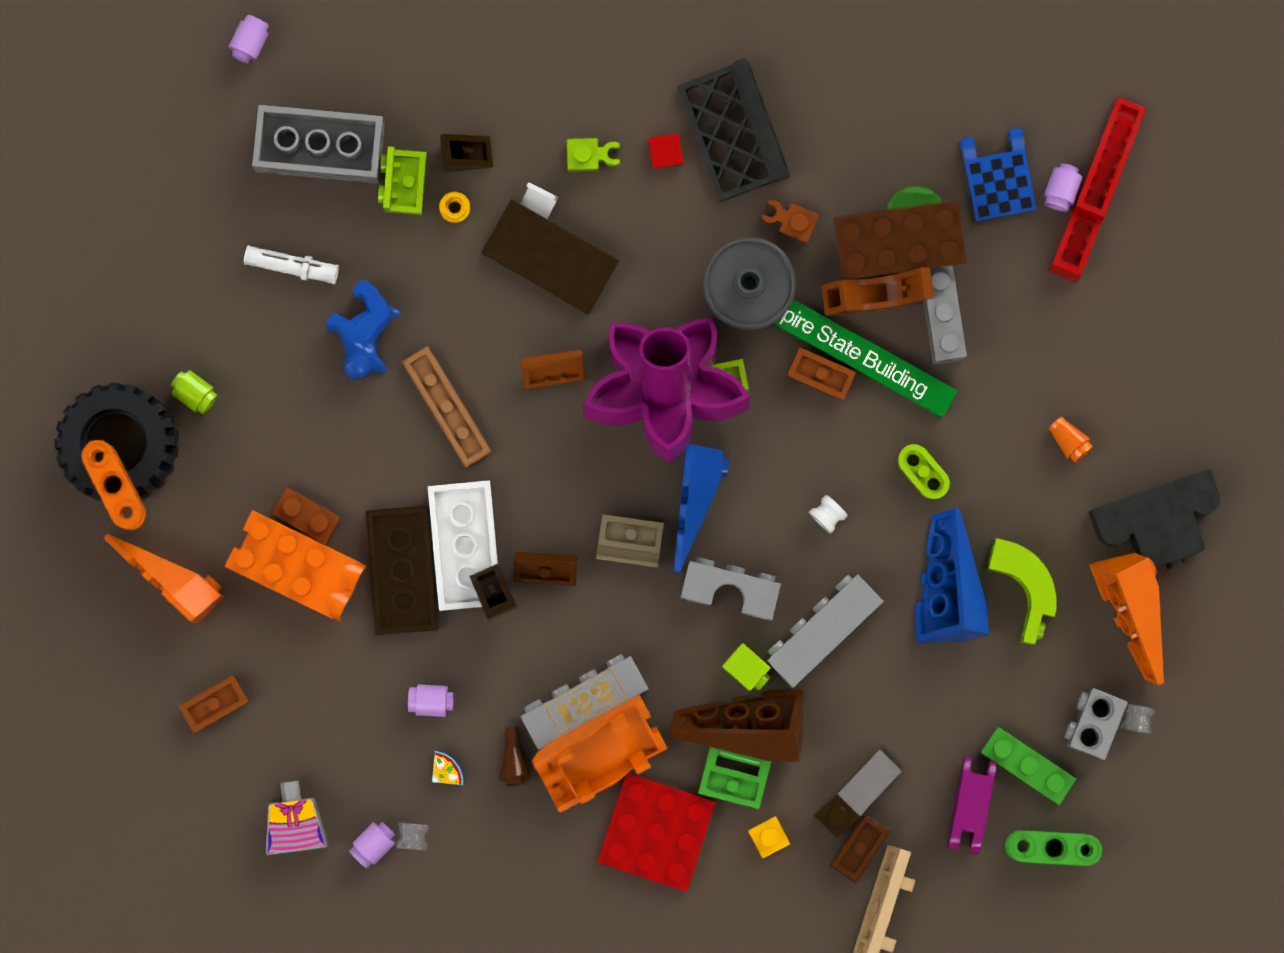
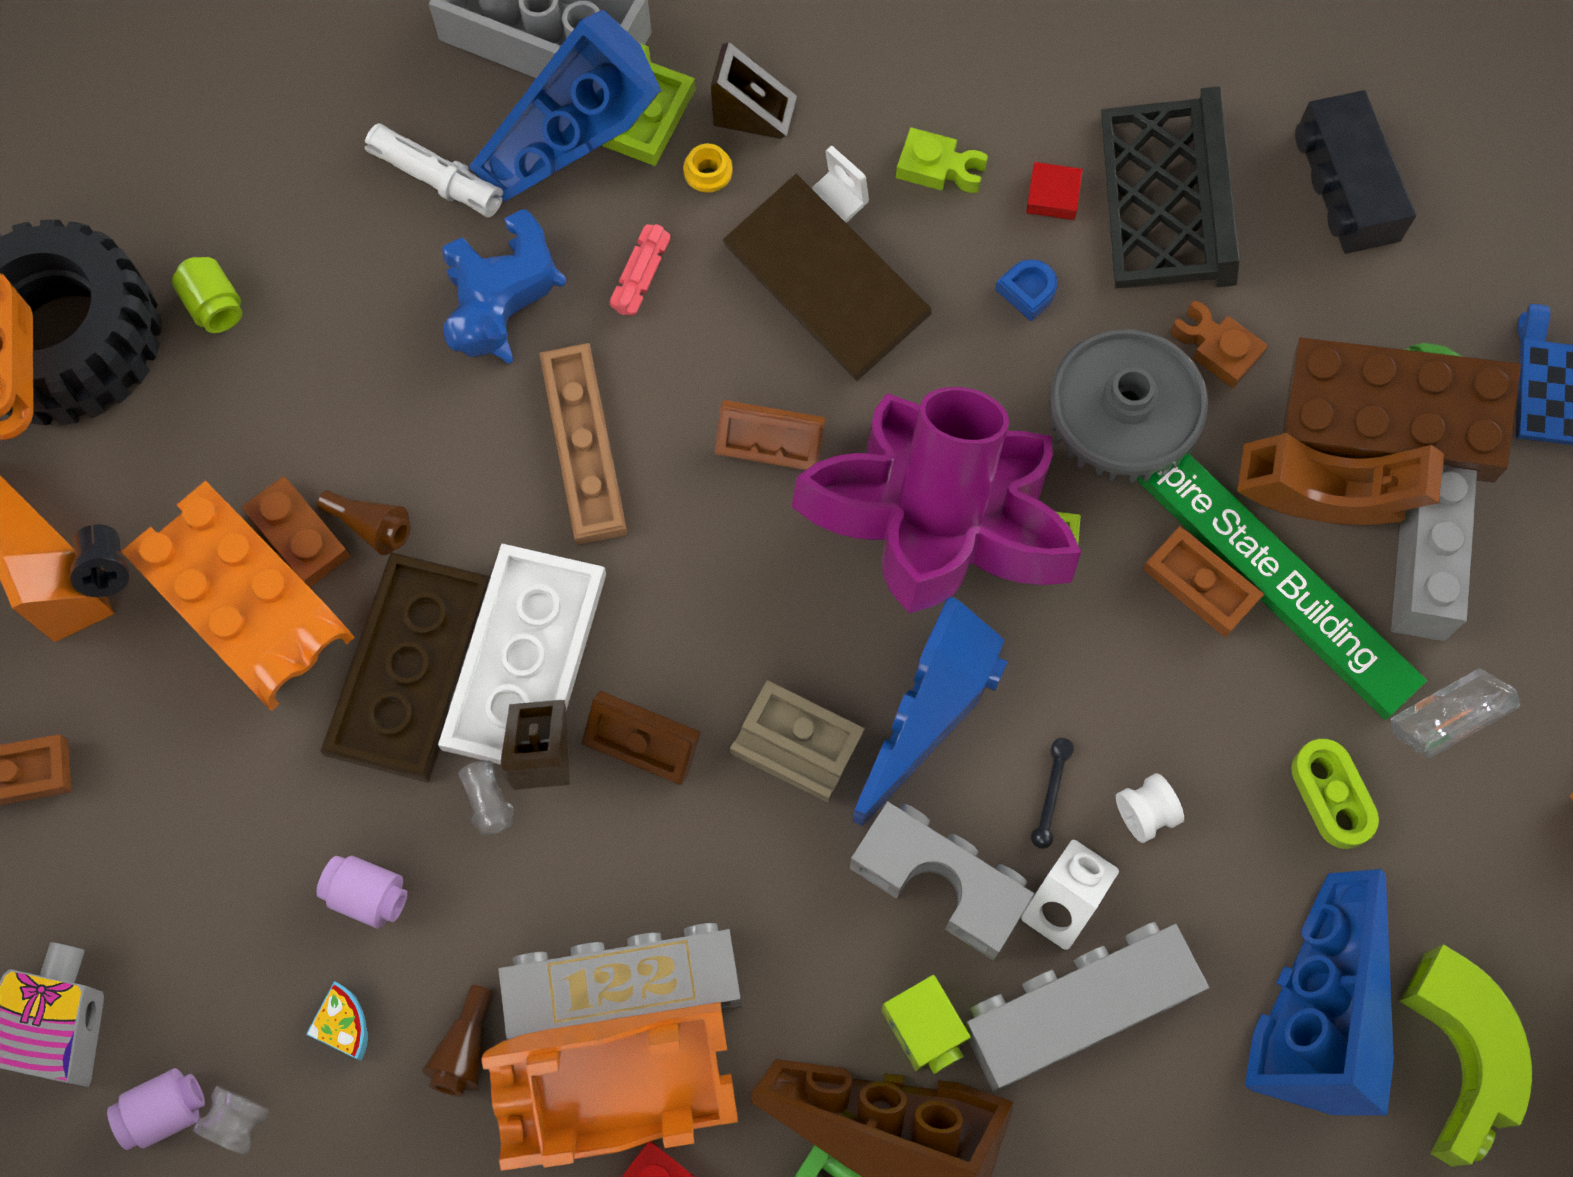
camera: 25 degrees right, 15 degrees down
(217, 577) = (86, 569): none -> black bush
(351, 497) = (378, 524): none -> reddish brown cone
(371, 203) = (577, 103): none -> blue wedge
(439, 288) = (640, 270): none -> coral axle
(474, 629) = (490, 809): none -> clear pin
(670, 220) = (1028, 287): none -> blue tile
(772, 496) = (1061, 752): none -> black hinge
(800, 569) = (1076, 882): none -> white bracket
(838, 82) = (1354, 172): none -> black brick
(976, 405) = (1454, 712): none -> clear plate

